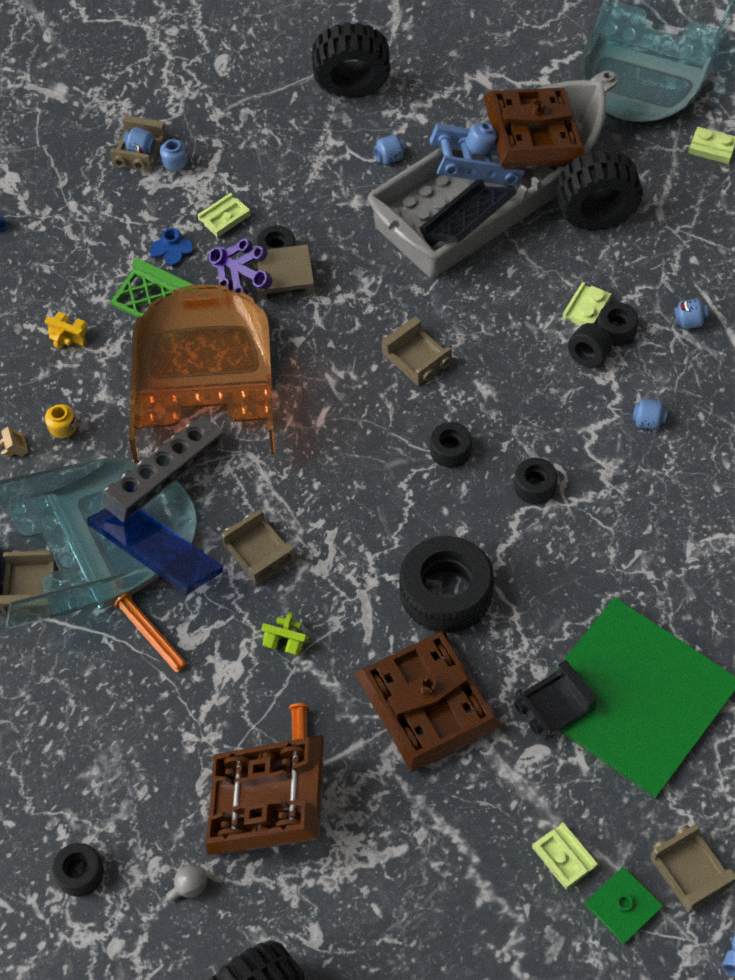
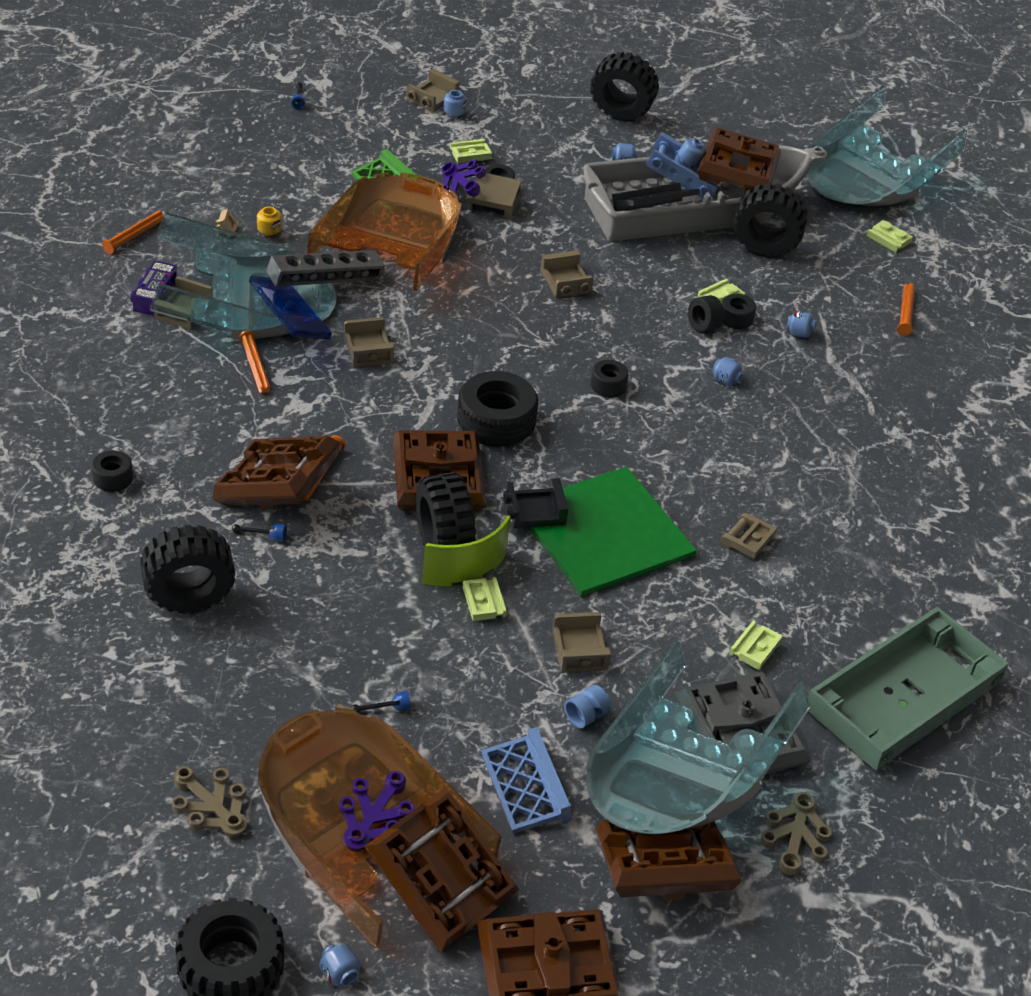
camera: 15 degrees right, 15 degrees down
(64, 333) = (307, 176): yellow hips -> none
(139, 141) = (434, 86): medium blue head -> none
(171, 247) = (418, 156): blue plate -> none
(188, 882) = (187, 506): light grey piece -> none
(295, 640) = (357, 394): lime hips -> none
(301, 870) = (277, 532): none -> hinge
(450, 456) = (556, 335): black tyre -> none
(483, 781) = (444, 510): none -> black tyre
(528, 817) = (465, 561): none -> lime panel
(623, 905) = (511, 646): green plate -> none

